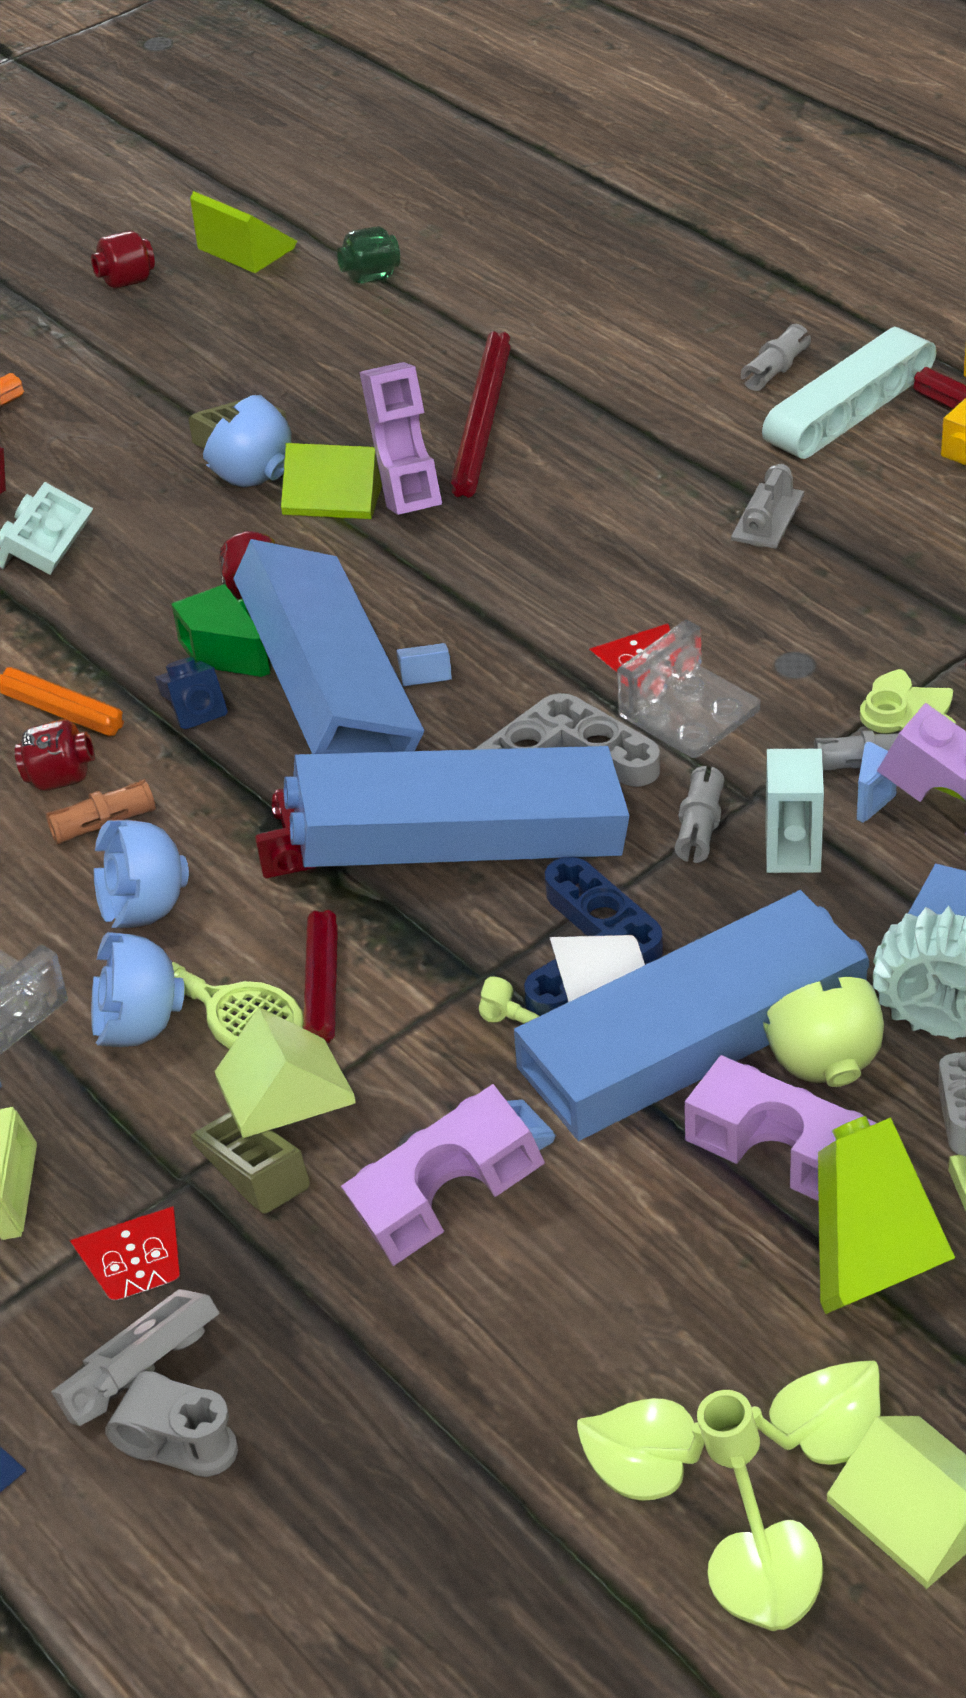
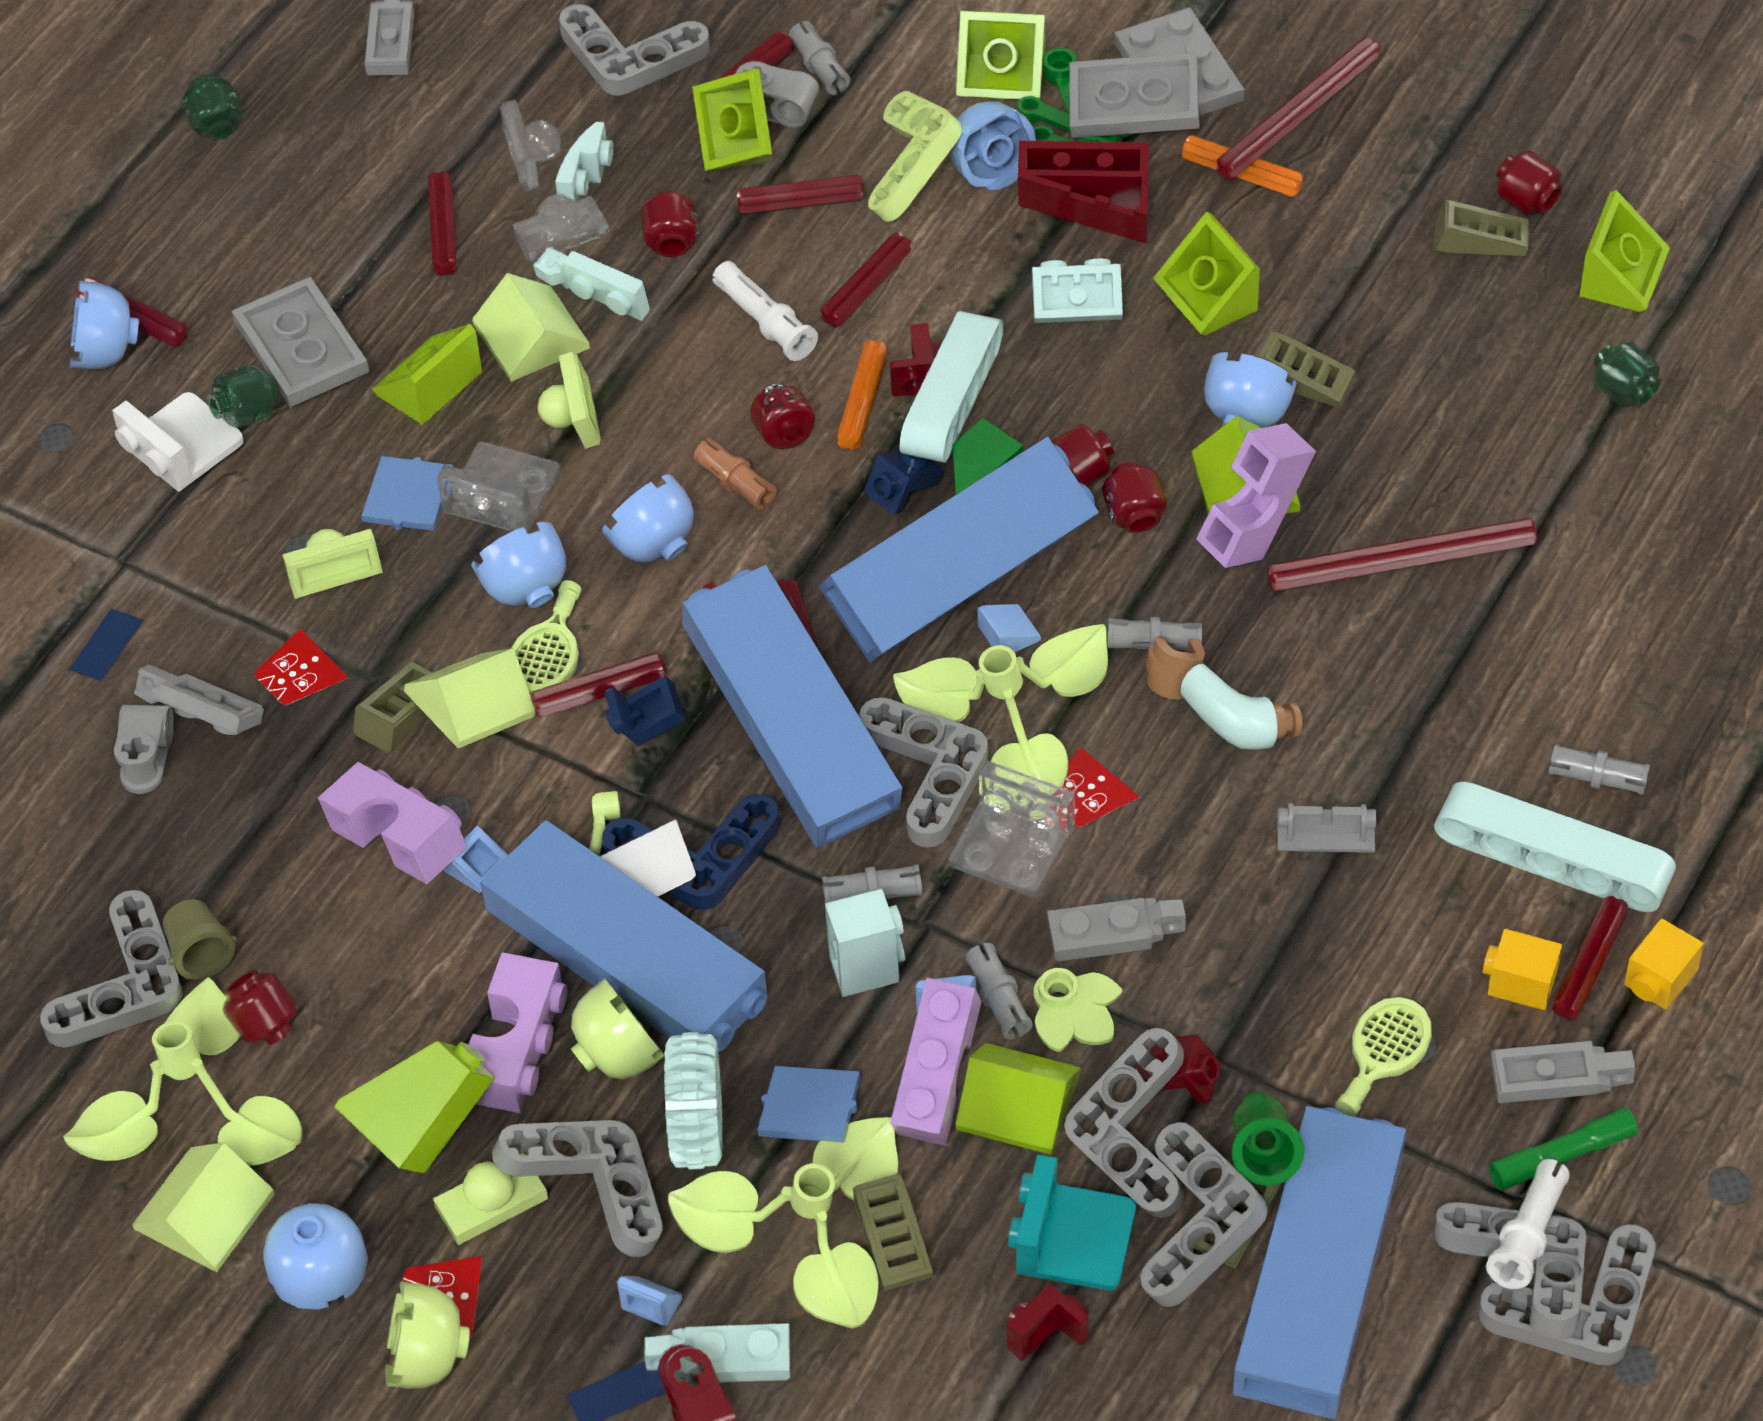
camera: 70 degrees right, 10 degrees up
(54, 646) = (909, 374): none -> dark red bracket
(91, 440) = (1210, 277): none -> lime slope
(114, 619) = (951, 386): none -> light aqua beam
(148, 302) = (1465, 231): none -> olive slope
(324, 534) = (1134, 497): none -> dark red head
(387, 934) = (645, 711): none -> dark blue bracket
(491, 567) = (1142, 633): none -> light grey pin
(494, 627) = (1068, 662): none -> yellowish green plant
(517, 1415) = (197, 940): none -> olive piece
(555, 1509) = (134, 988): none -> light grey beam
(589, 542) = (1237, 718): none -> piece
(660, 1361) = (259, 1007): none -> dark red head
(819, 665) = (1113, 927): none -> light grey hinge

